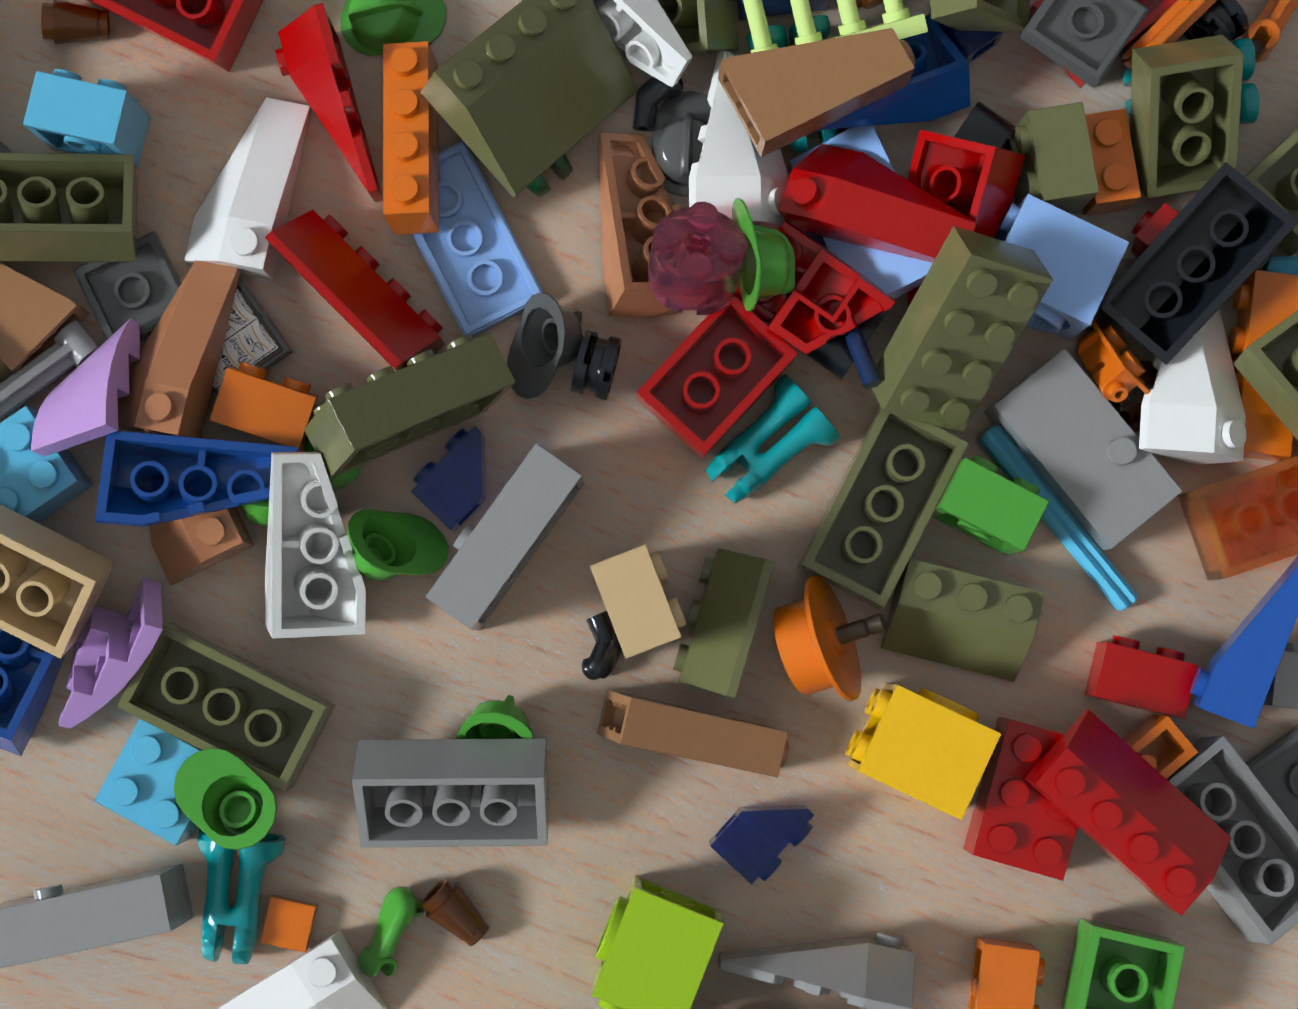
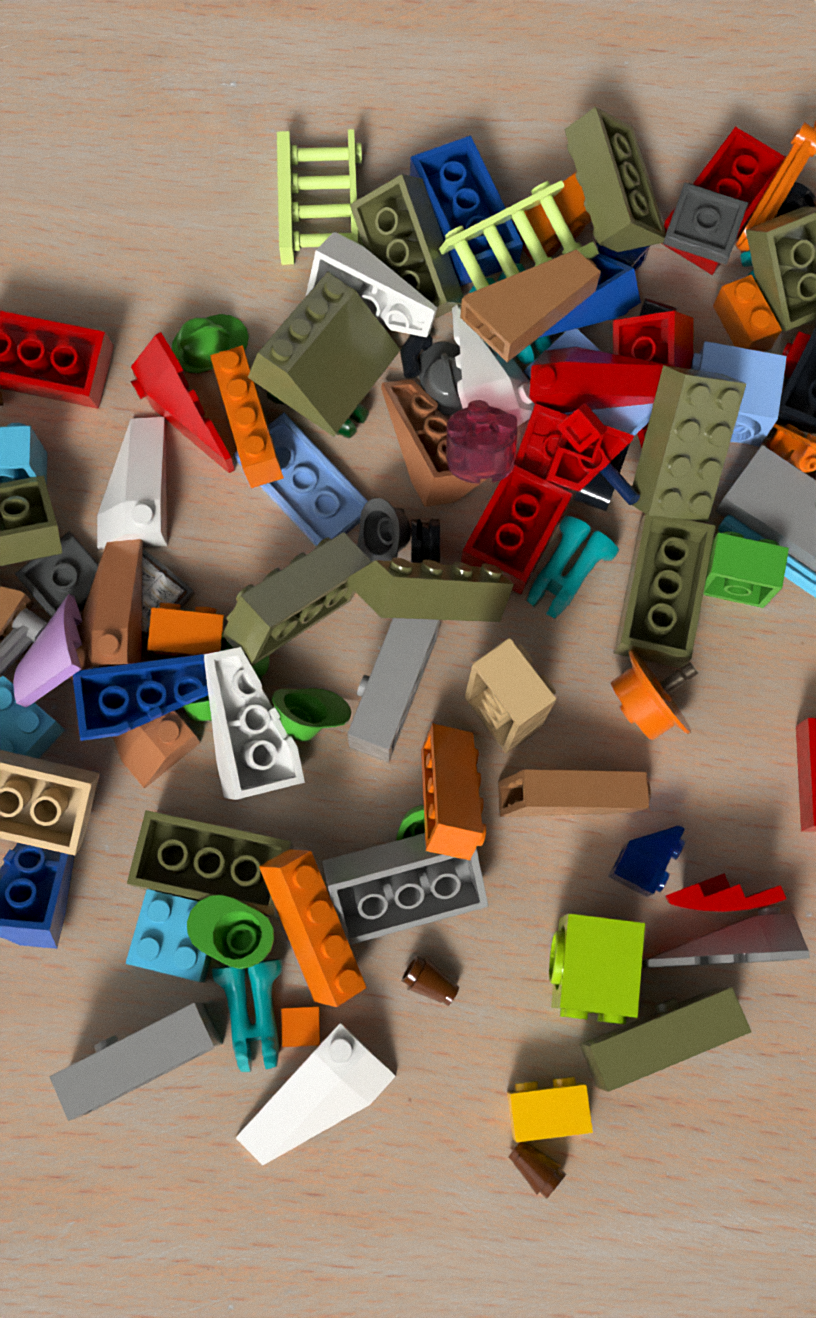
camera: 15 degrees left, 10 degrees down
(111, 653) = (112, 846): lavender slope -> none
(326, 817) = (313, 927): none -> orange brick
(355, 289) = (228, 531): red slope -> none
(395, 915) = (383, 996): bright green piece -> none
(457, 482) = (343, 655): clear blue slope -> none
(535, 701) = (451, 793): none -> orange brick
(579, 444) = (433, 590): none -> olive slope
(606, 650) = (490, 749): black arm -> none
(724, 621) = (578, 711): olive slope -> none
(767, 262) = (534, 432): bright green piece -> none
(824, 908) = (718, 896): none -> red slope
(830, 275) = (582, 428): none -> red plate
(923, 747) = (751, 757): yellow brick -> none
(962, 619) = (749, 658): olive slope -> none
(1057, 157) = (715, 313): olive brick -> none

